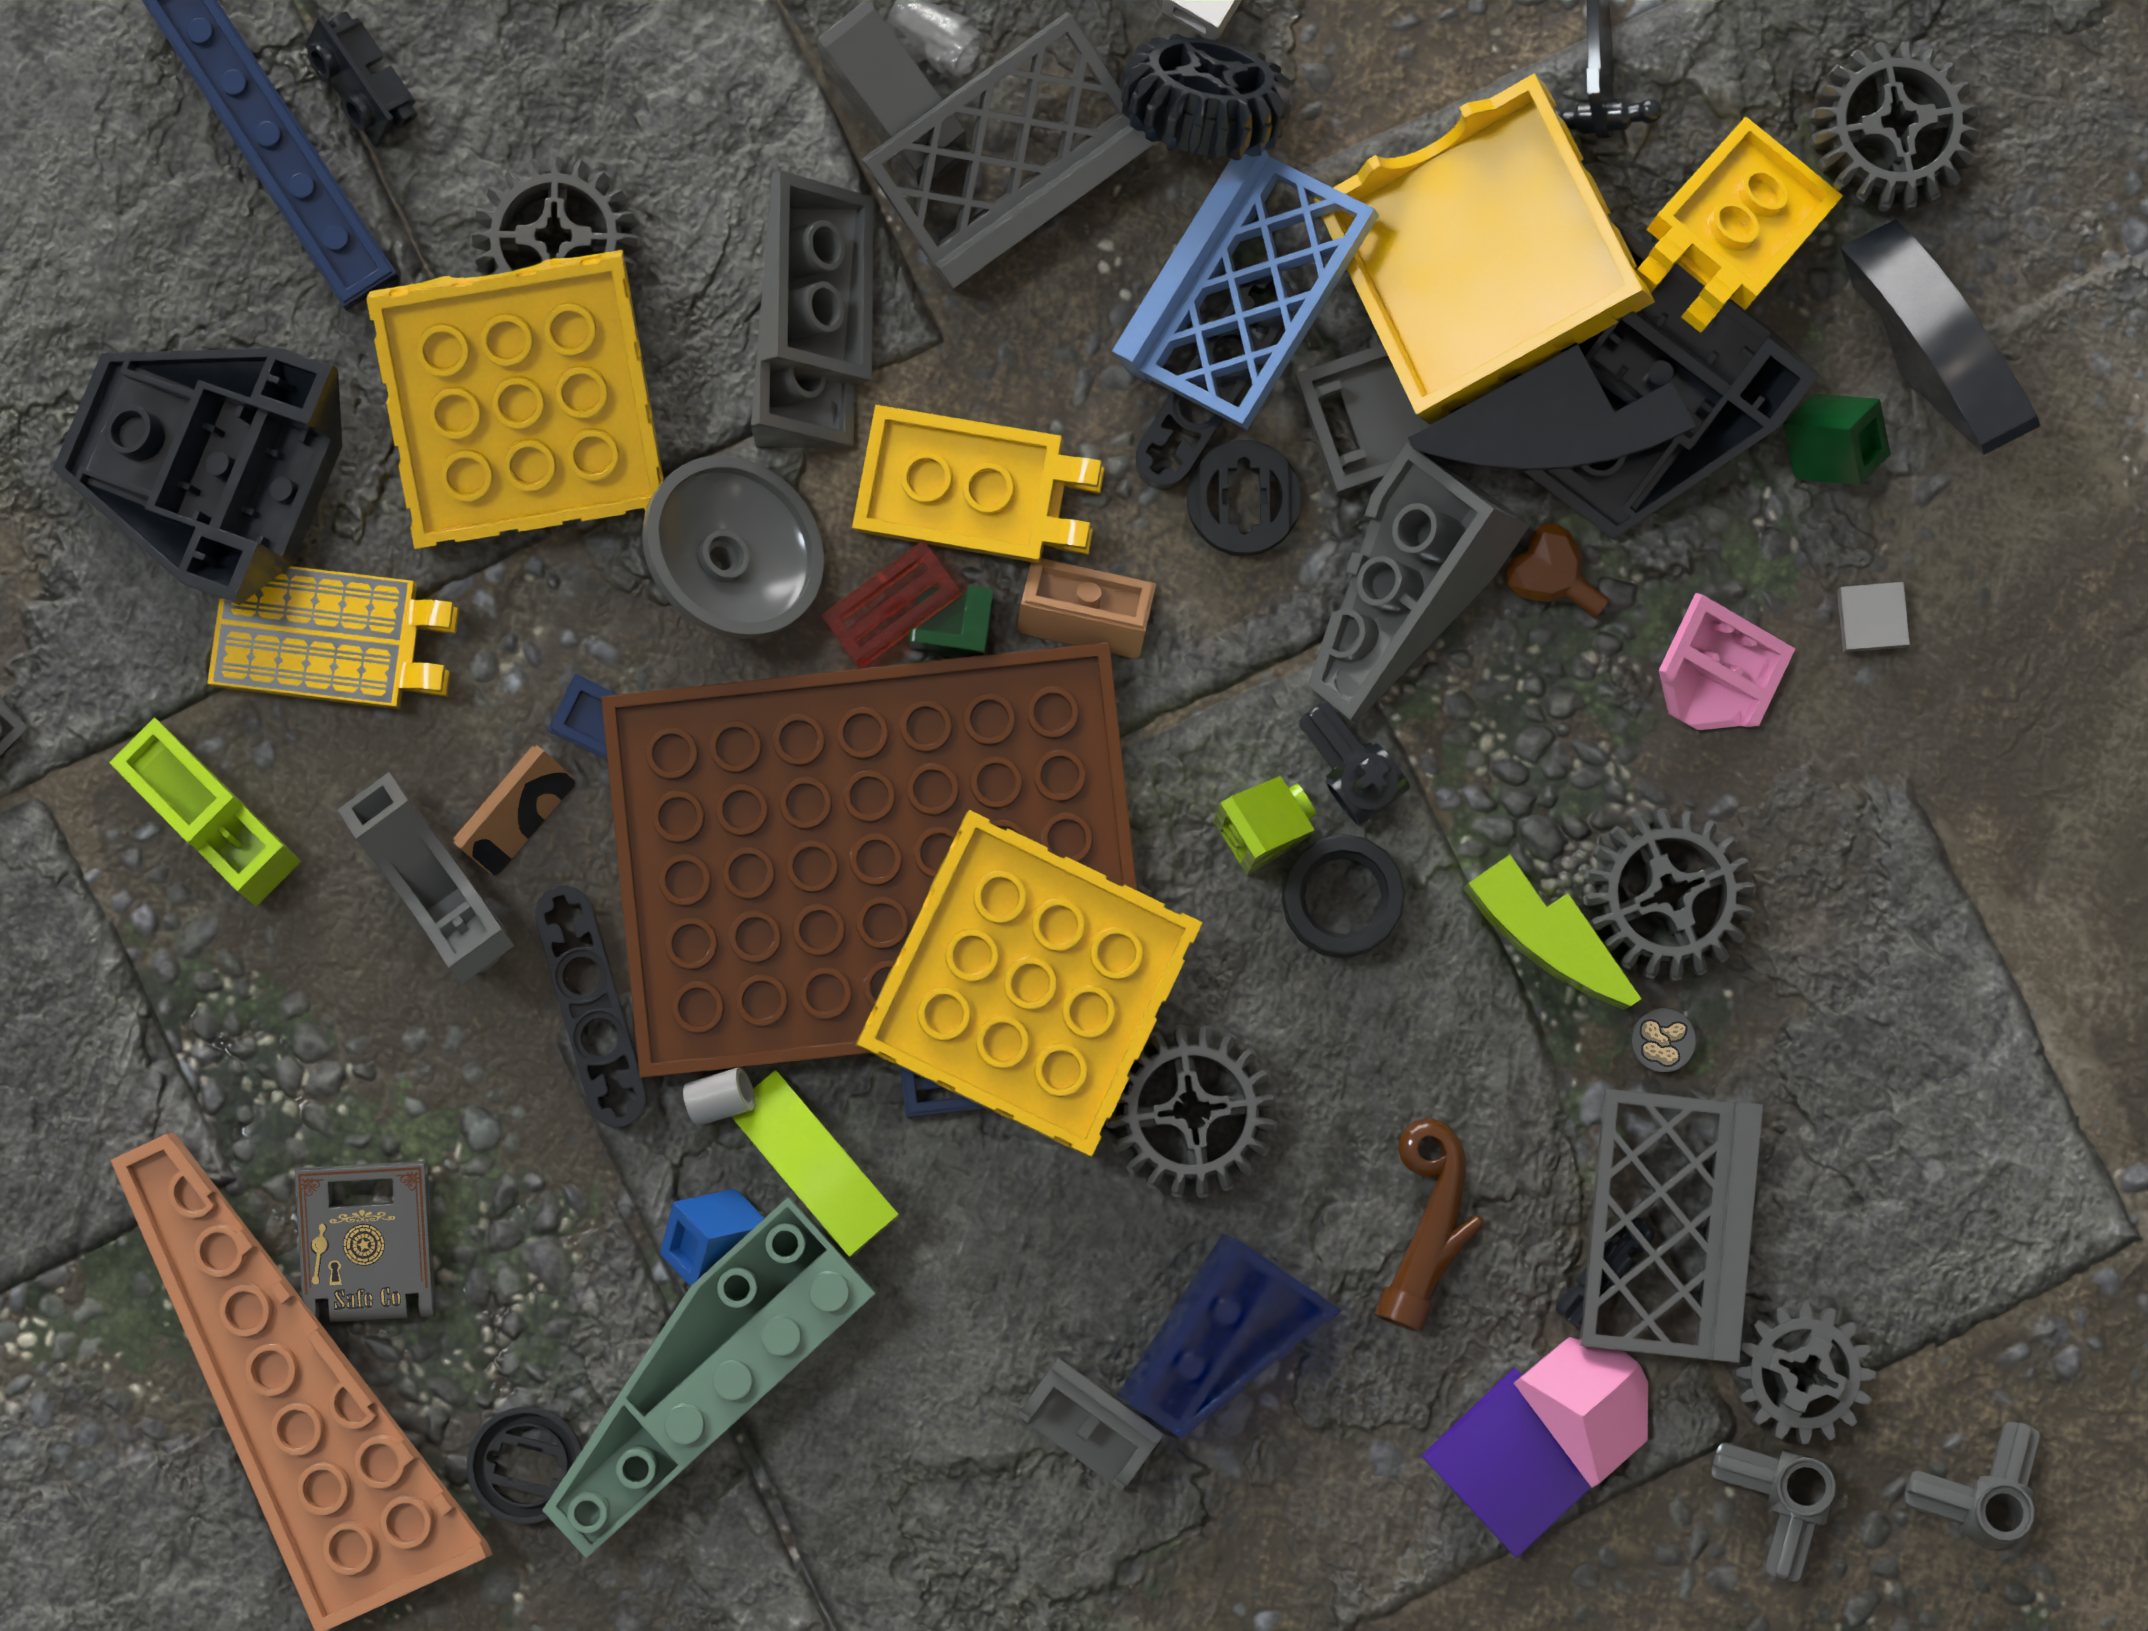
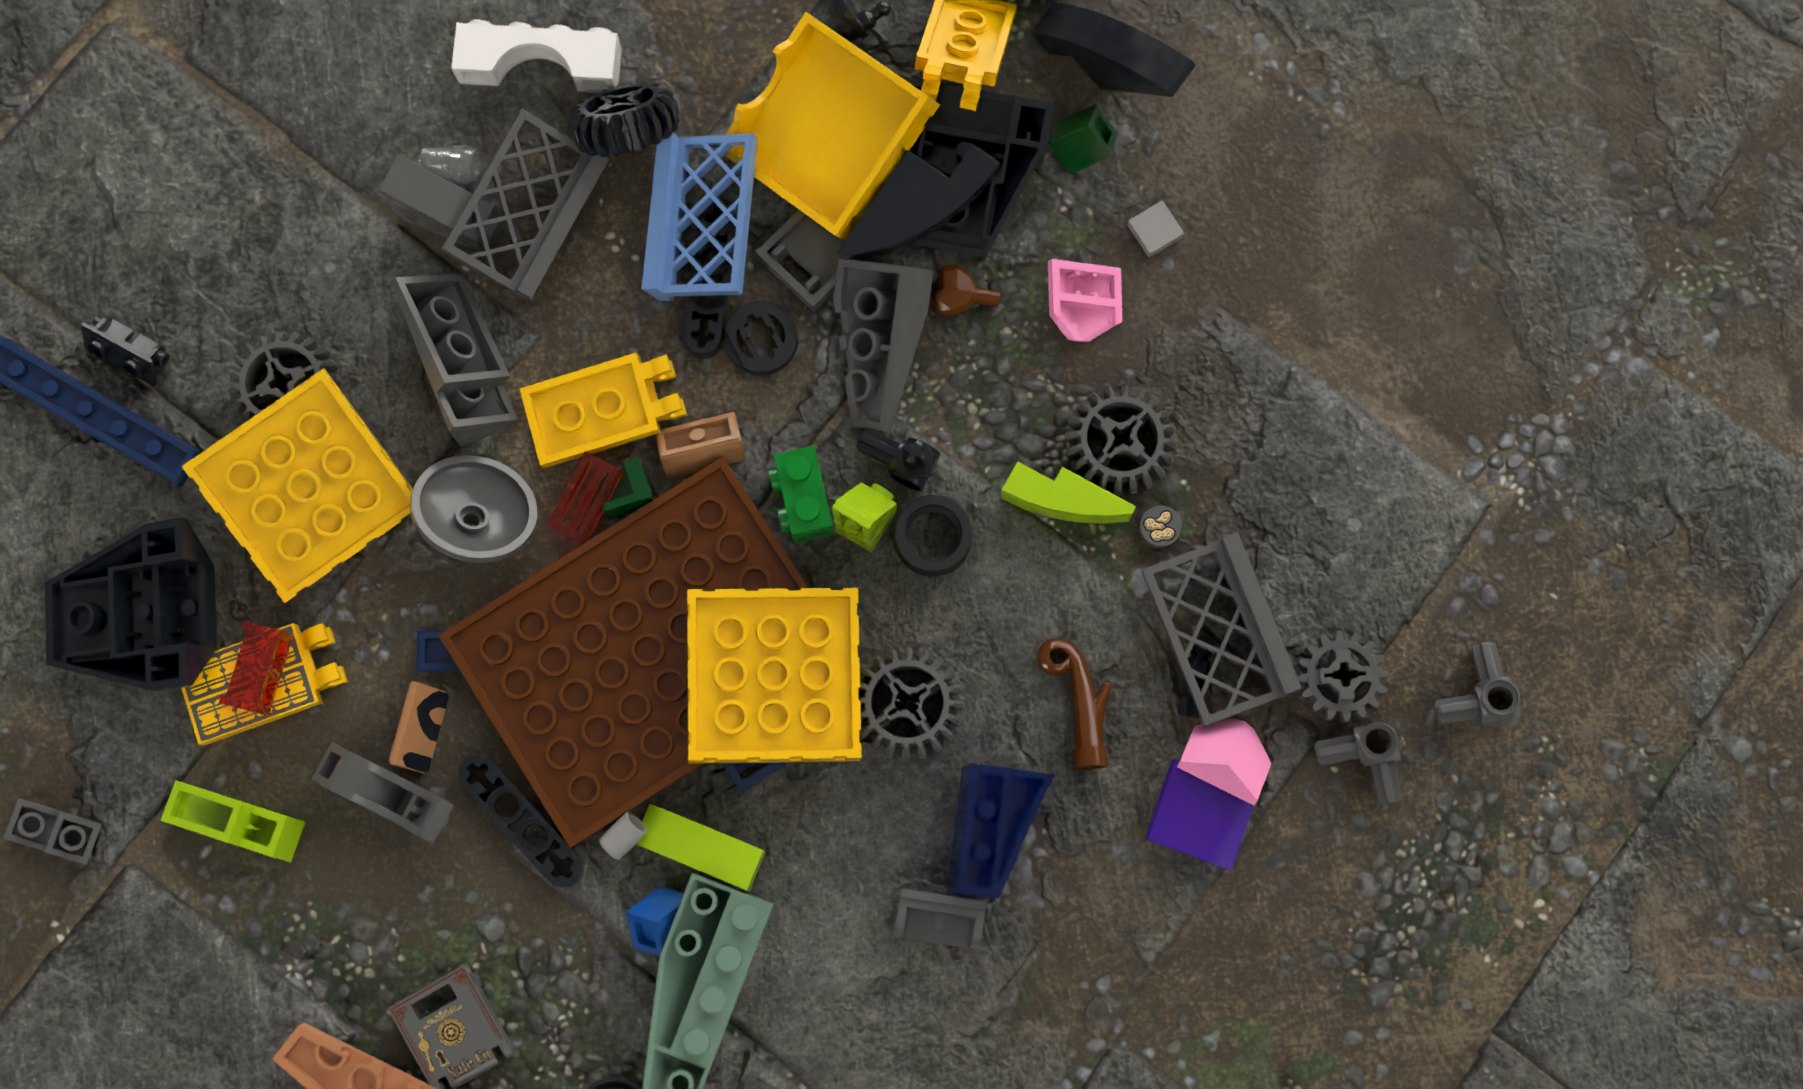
camera: 20 degrees left, 5 degrees down
(335, 622) = (258, 669): none -> clear red hinge
(1193, 750) = (803, 493): none -> green brick

